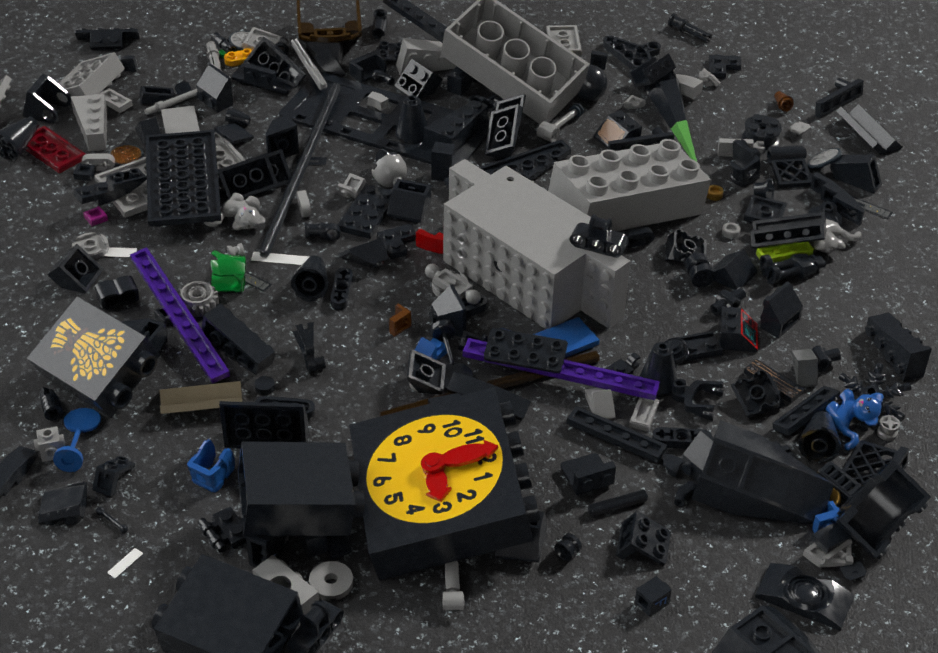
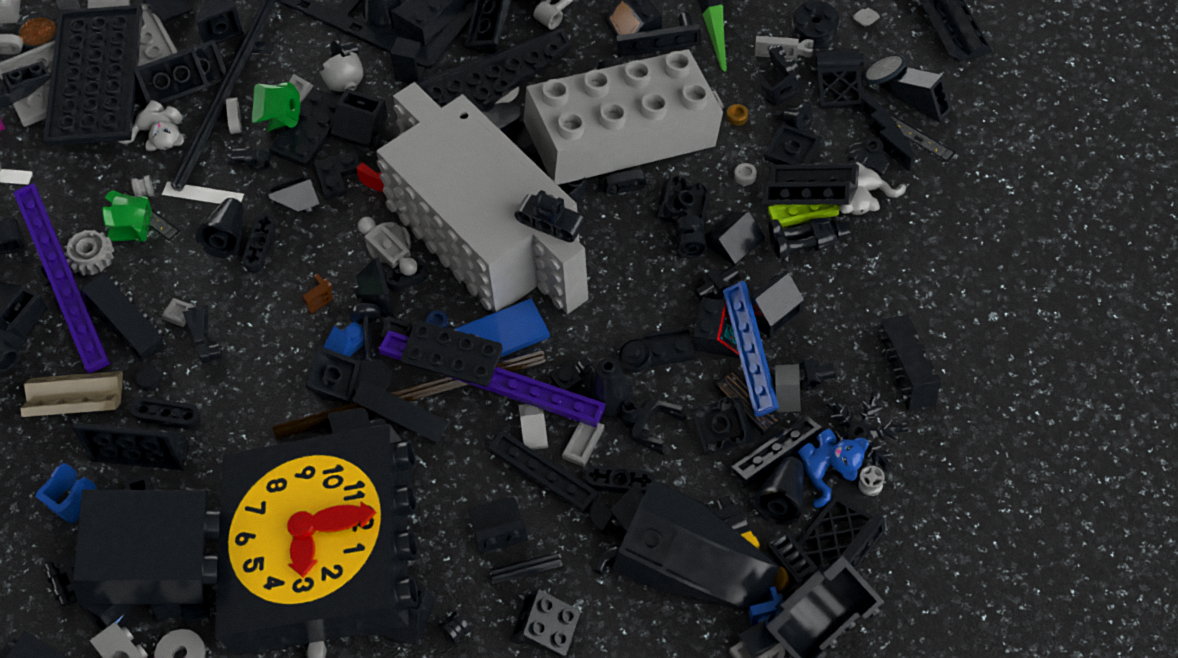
camera: 10 degrees right, 15 degrees up
(281, 338) = (174, 312): none -> light grey tile
(342, 189) = (277, 104): none -> green piece
(770, 340) = (750, 349): none -> blue tile

